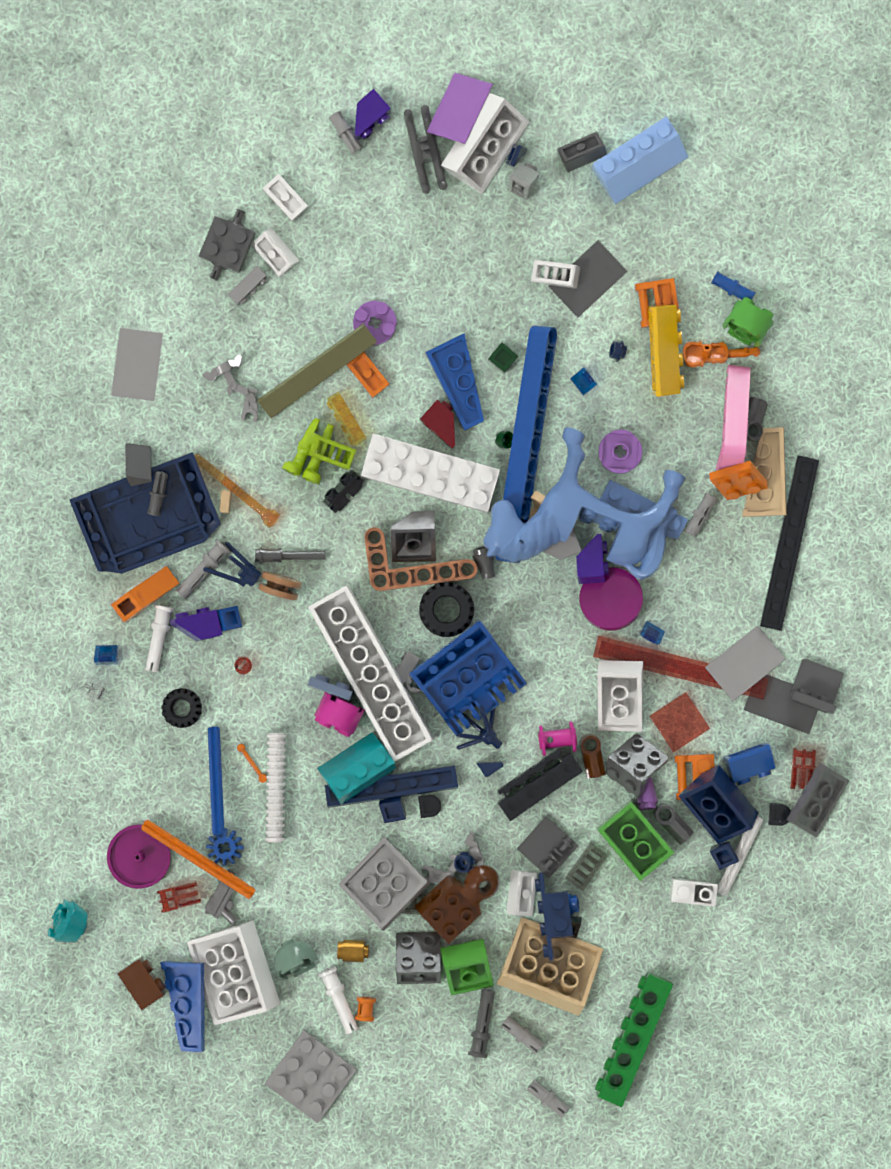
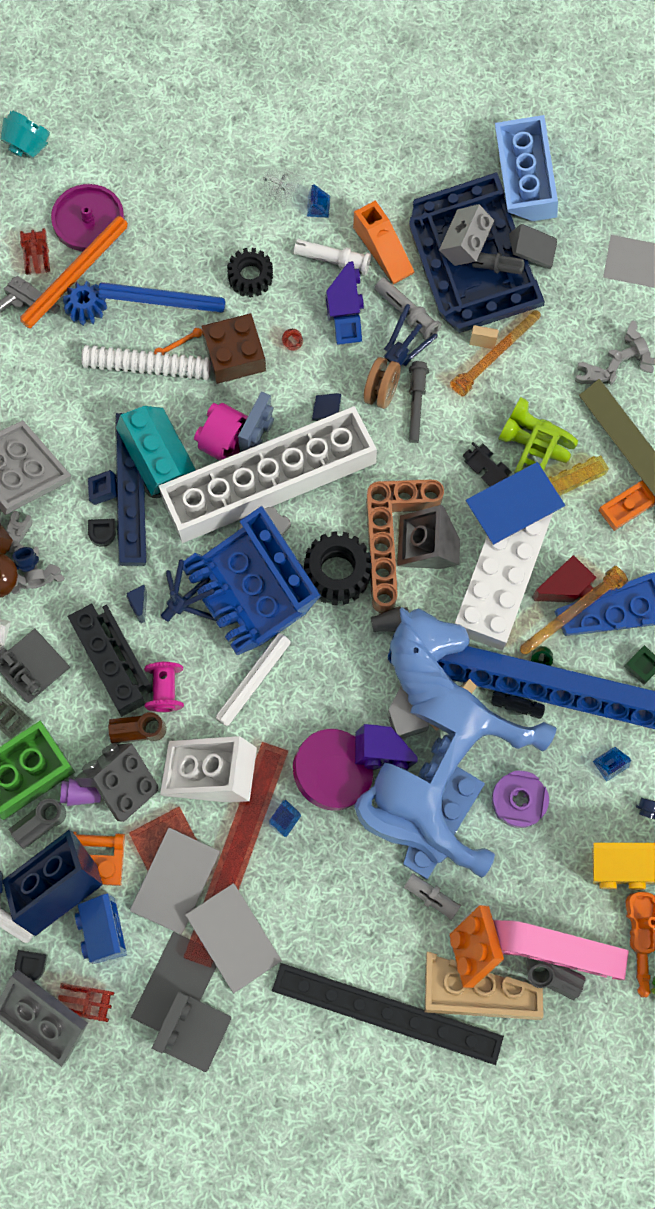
camera: 90 degrees right, 15 degrees down
(60, 473) = (527, 168): none -> light blue slope
(135, 522) = (466, 235): none -> light grey brick
(257, 714) = (234, 348): none -> reddish brown brick
(302, 630) = (326, 405): none -> dark blue slope
(382, 468) = (515, 503): none -> blue piece
(438, 386) = (614, 579): none -> clear orange piece
(542, 668) = (253, 679): none -> white axle
(544, 456) = (517, 704): none -> black axle
(706, 712) = (174, 880): none -> light grey piece

